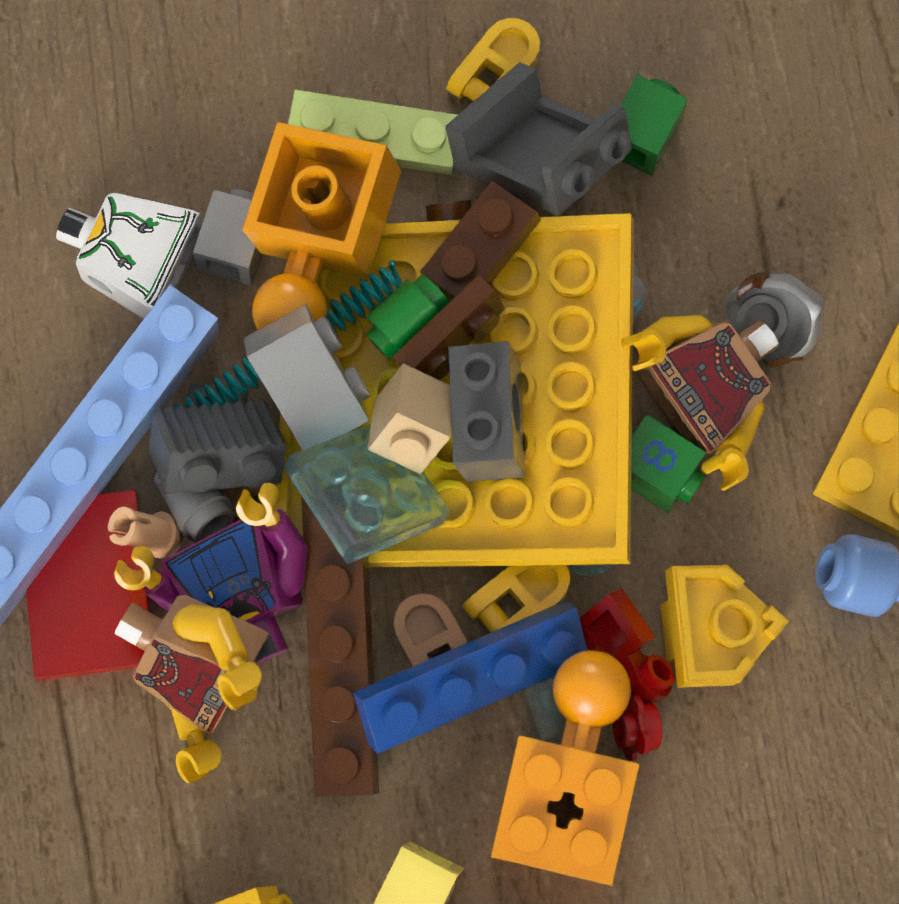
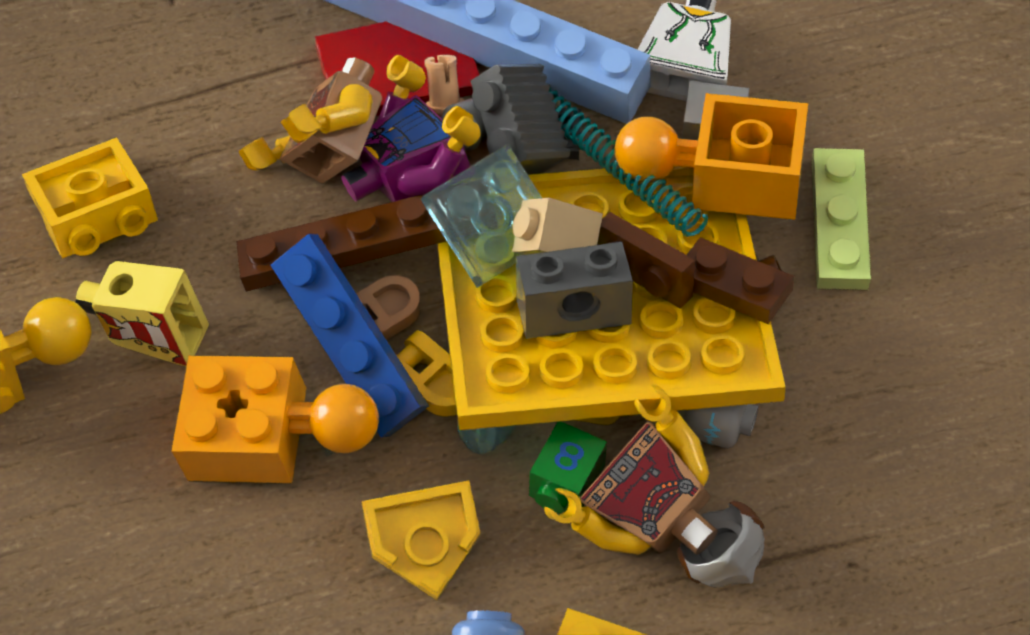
camera: 85 degrees right, 15 degrees down
(306, 378) = (584, 155): light grey brick -> none
(404, 314) = (659, 223): green brick -> none
(499, 51) = (941, 313): yellow plate -> none
(536, 144) = (850, 323): dark grey panel -> none
(621, 632) = (400, 454): red plate -> none
(638, 728) = (321, 477): red plate -> none
(653, 117) = (897, 426): green brick -> none

